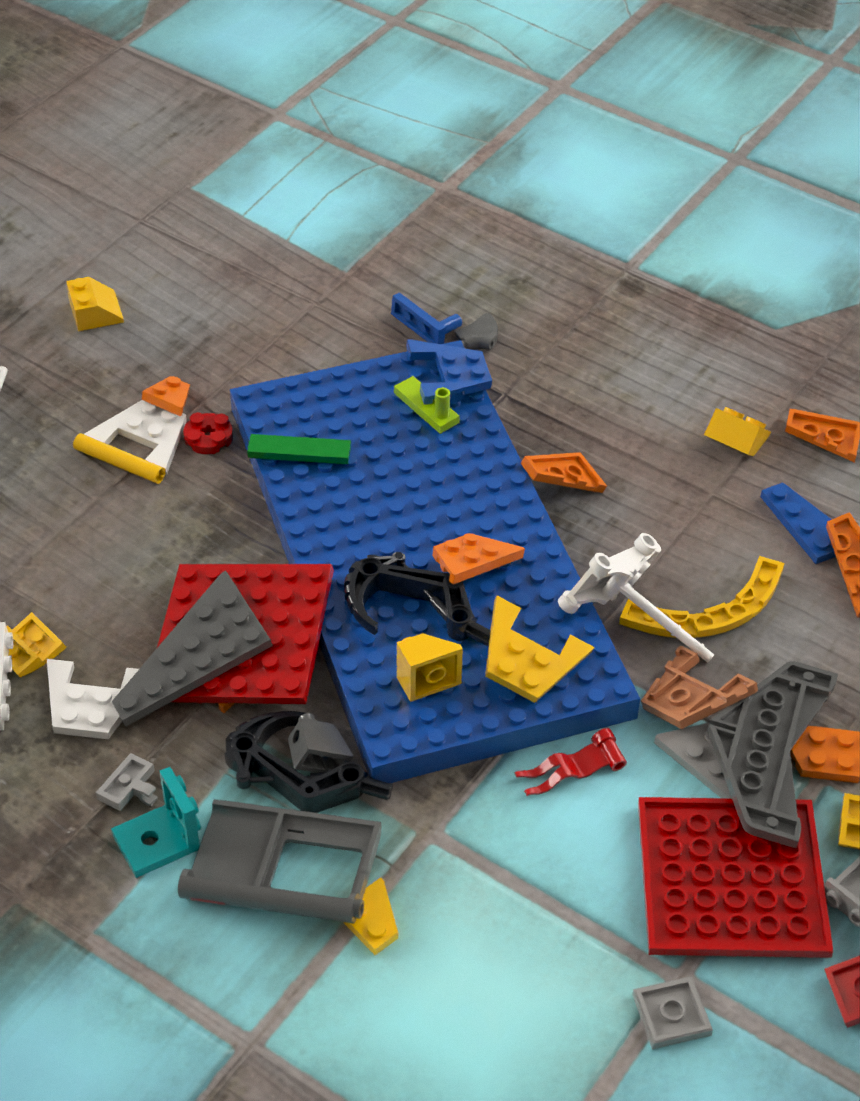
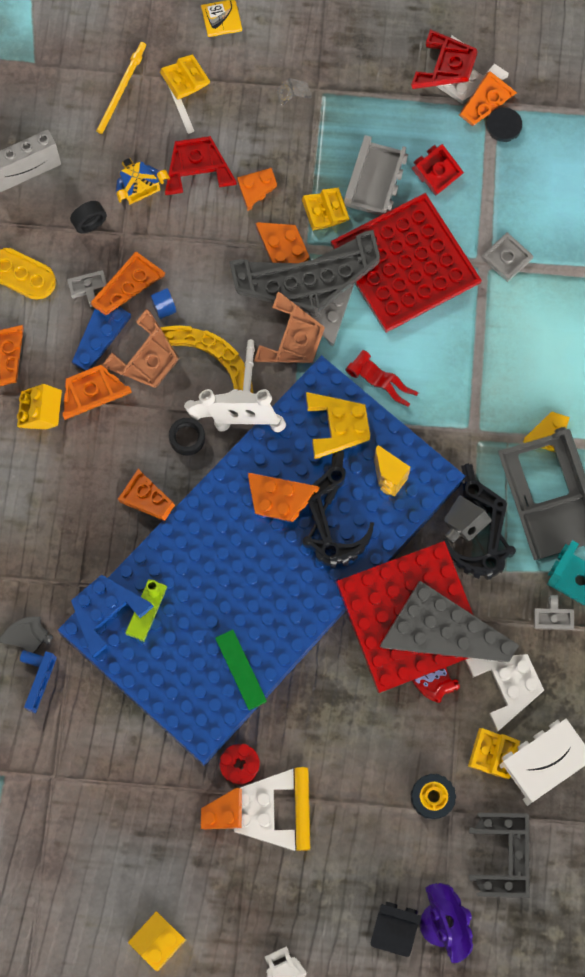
camera: 120 degrees left, 25 degrees up
(31, 565) = (445, 792): none -> black wheel
(144, 631) = (436, 685): none -> red arm
(615, 526) = (186, 422): none -> black tyre
(733, 485) = (91, 390): none -> orange wing
(743, 546) = (153, 358): none -> nougat wing
(813, 590) = (163, 303): none -> blue brick

